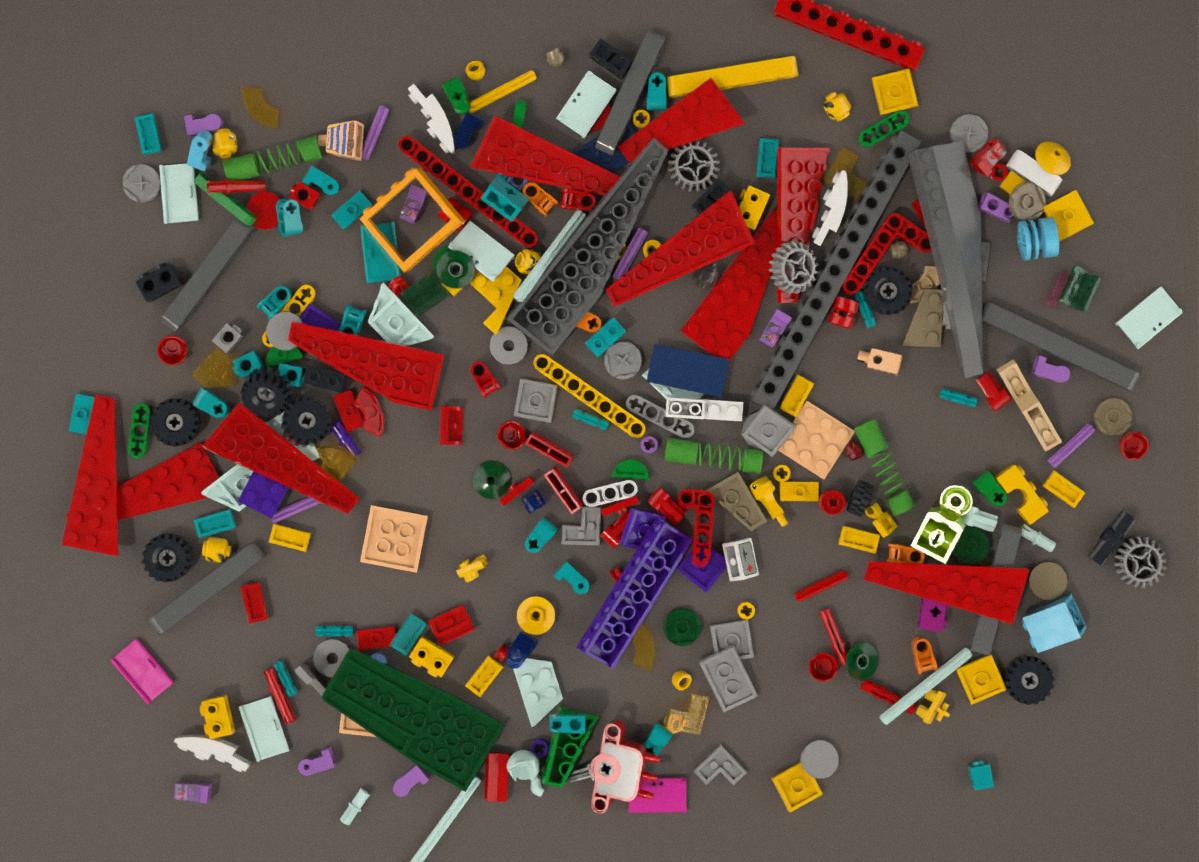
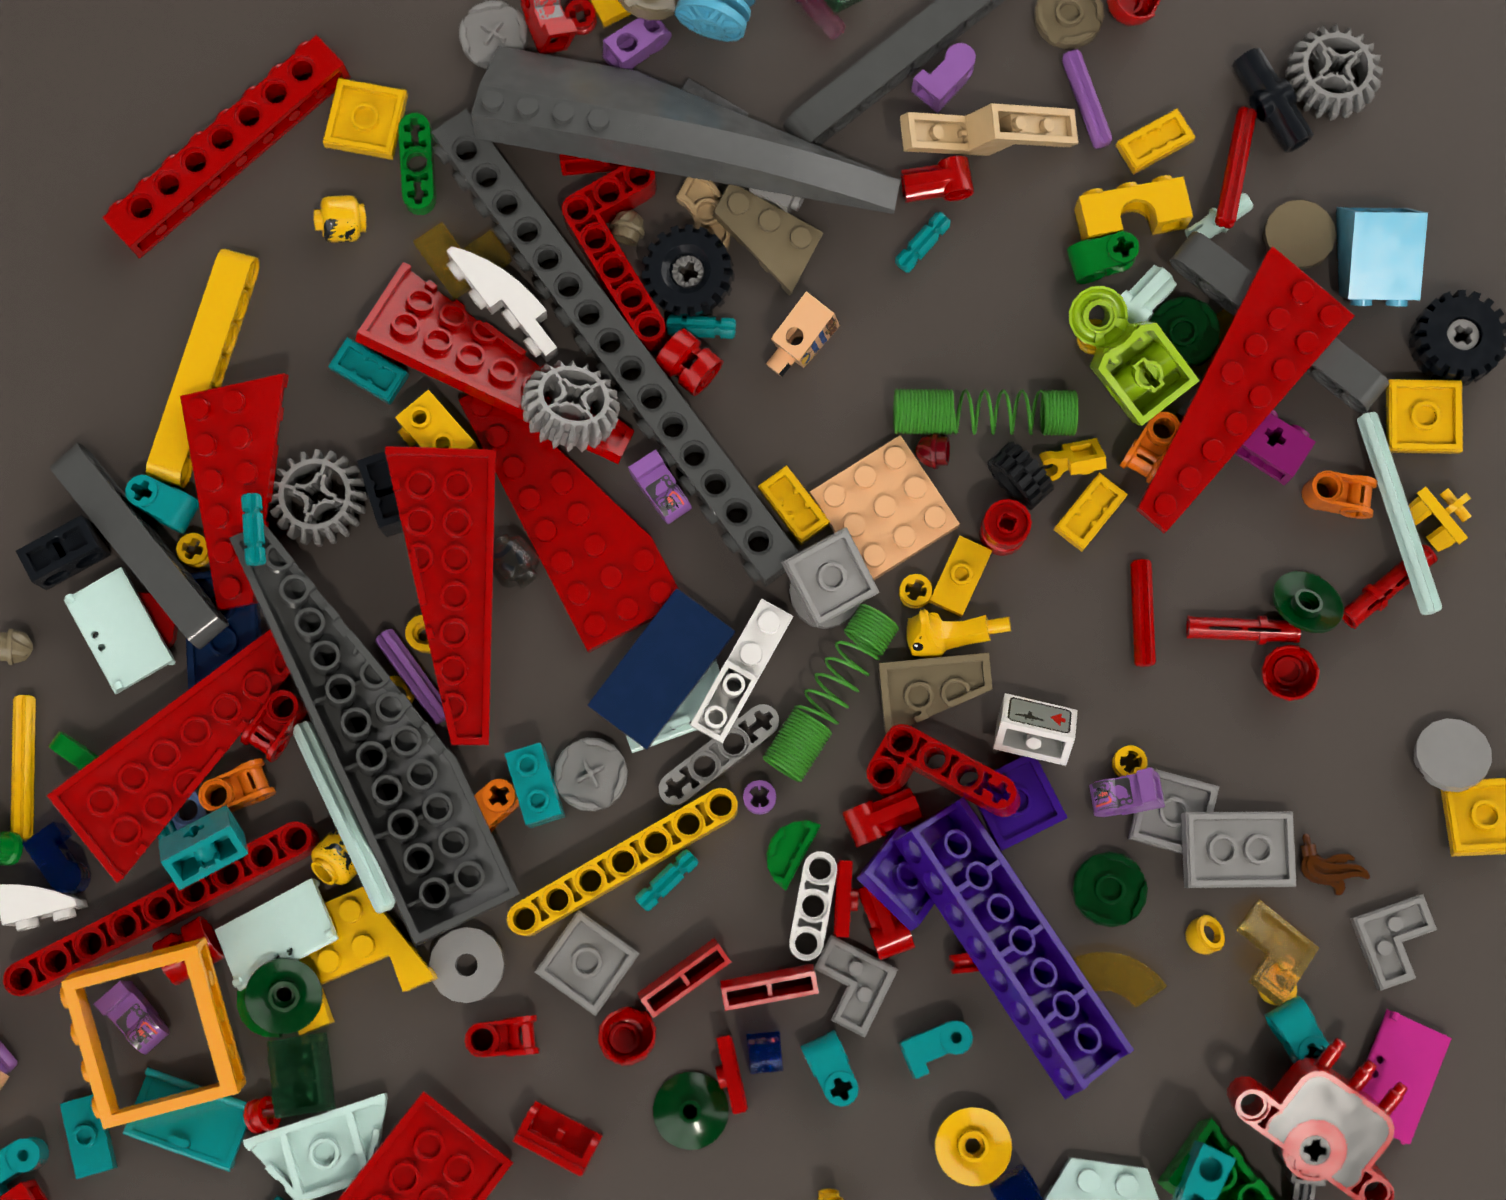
camera: 60 degrees left, 10 degrees down
(662, 148) = (253, 529): none -> teal axle
(729, 615) = (1127, 794): none -> medium lavender leg
(738, 725) = (1329, 870): none -> reddish brown piece
(1068, 534) = (1235, 167): none -> red axle

